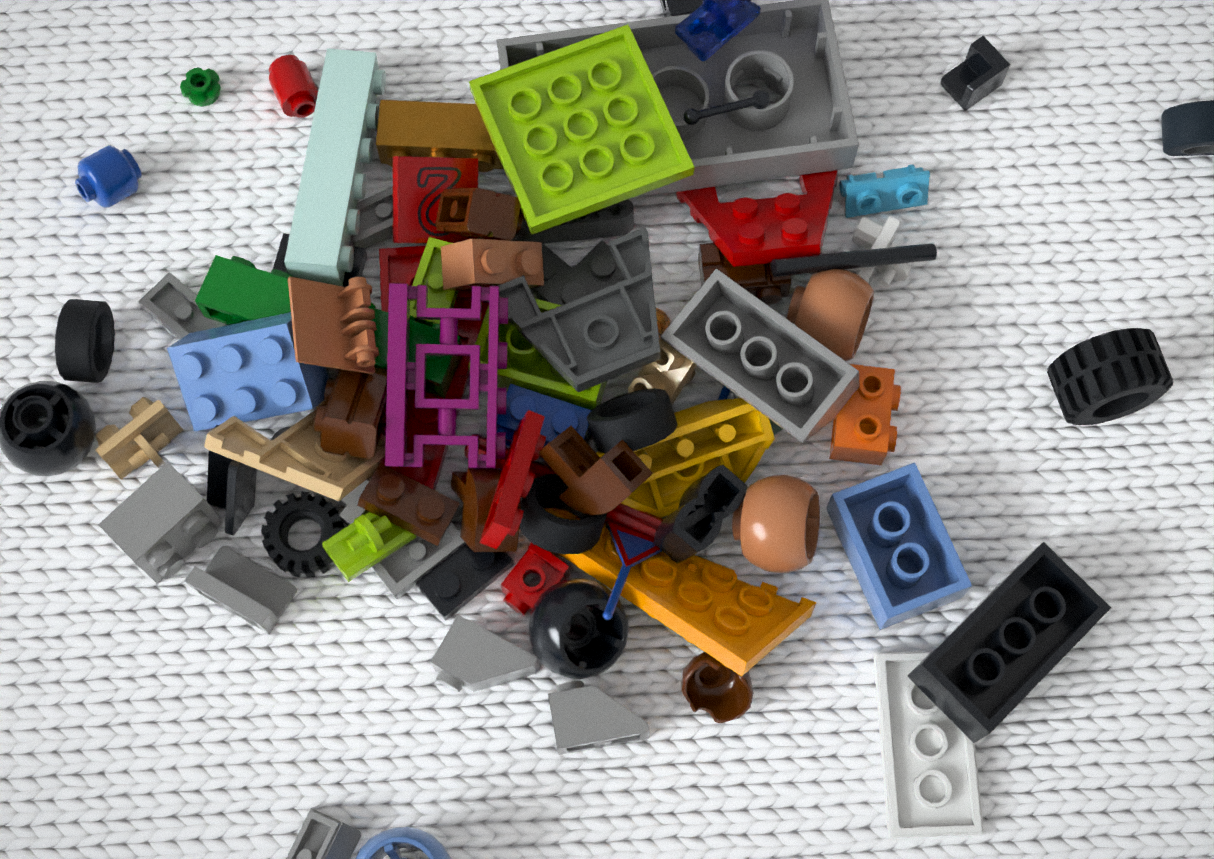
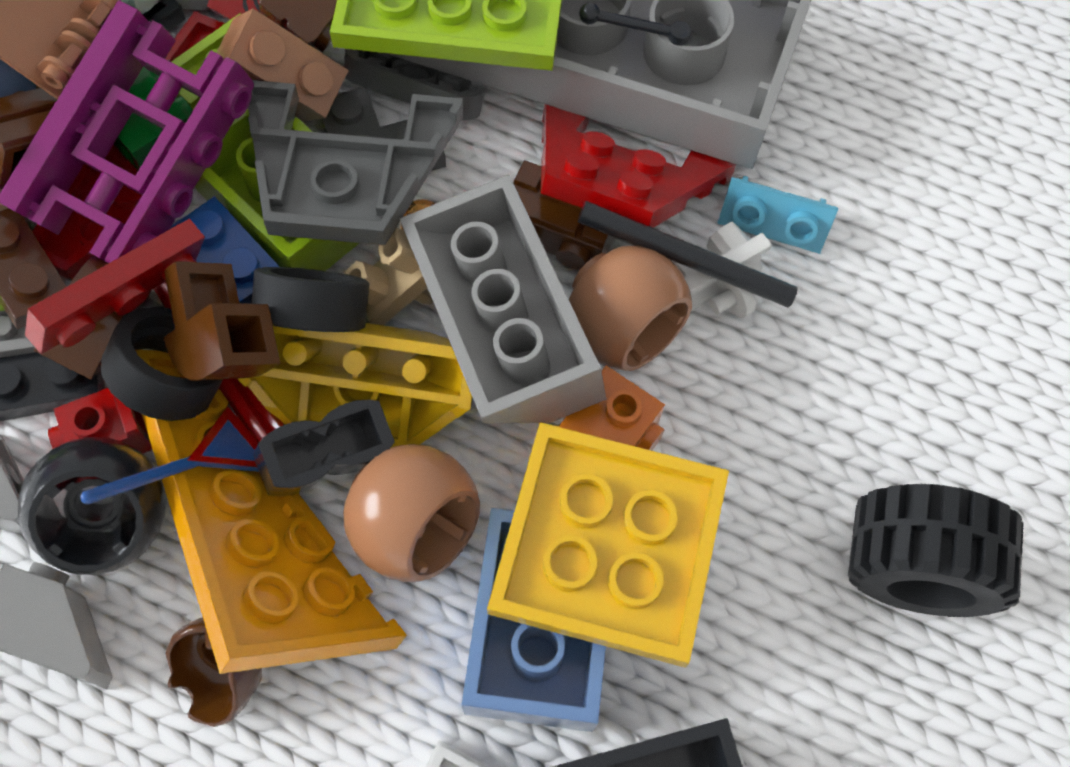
camera: 25 degrees right, 5 degrees down
(920, 475) = (610, 544): none -> yellow plate
(977, 75) = (959, 147): black panel -> none

